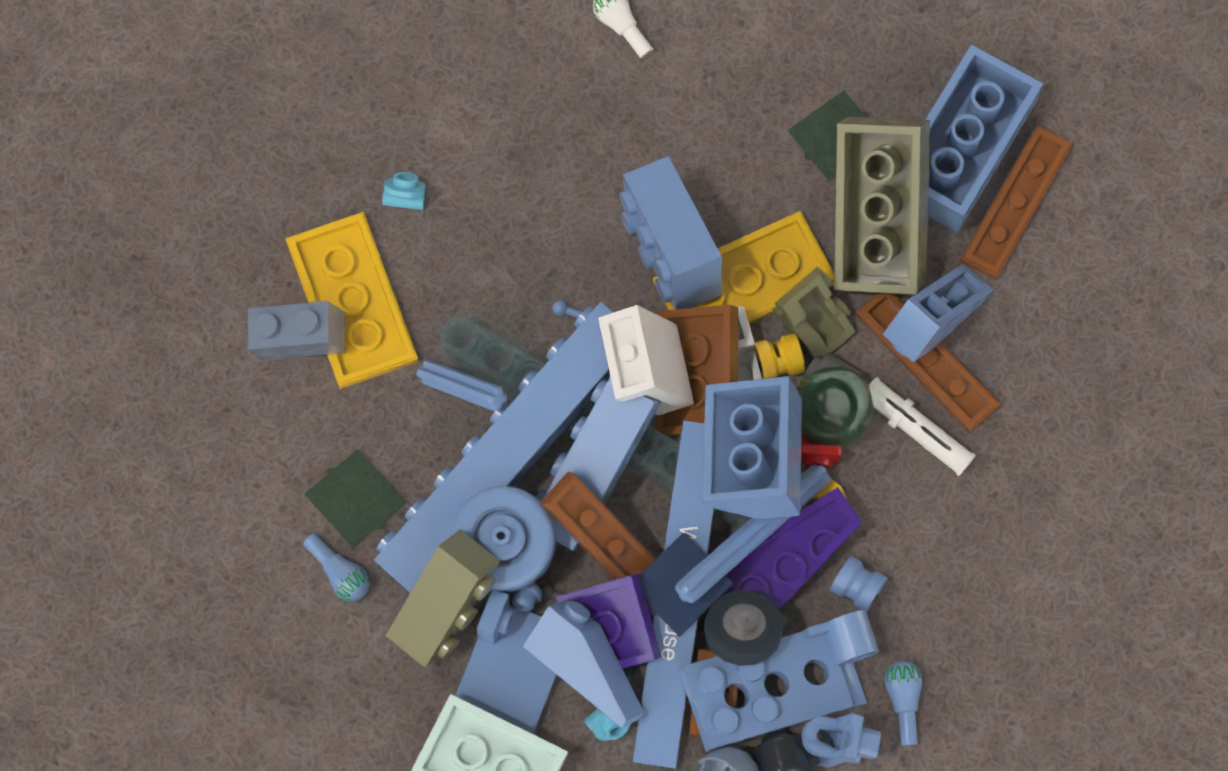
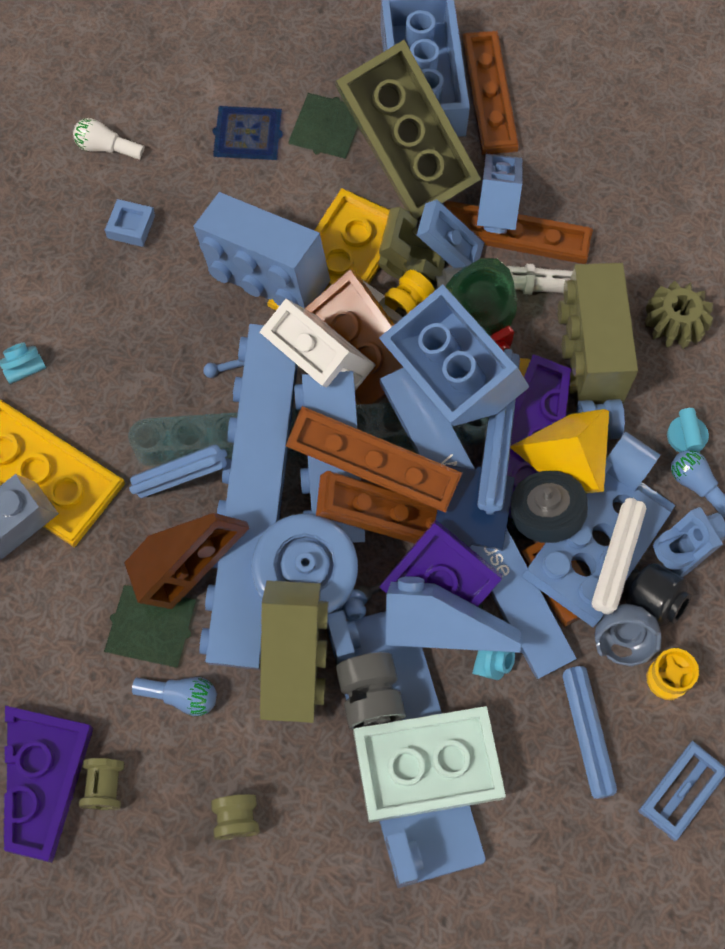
camera: 35 degrees left, 5 degrees down
(190, 562) = (42, 774): none -> dark purple wing
(231, 599) = (101, 784): none -> olive bush
(314, 697) = (235, 816): none -> olive wheel
(405, 461) = (179, 557): none -> reddish brown slope
(485, 673) = (370, 690): none -> dark grey wheel
(586, 120) = (130, 223): none -> medium blue plate
(621, 488) = (373, 459): none -> dark orange tile
(758, 95) = (247, 133): none -> piece
(767, 708) = (619, 556): none -> white axle
(803, 592) = (571, 446): none -> yellow slope
(854, 329) = (448, 236): none -> medium blue plate
(909, 507) = (598, 333): none -> olive brick
(929, 649) = (687, 432): none -> medium azure plate
(1023, 546) = (679, 314): none -> olive gear

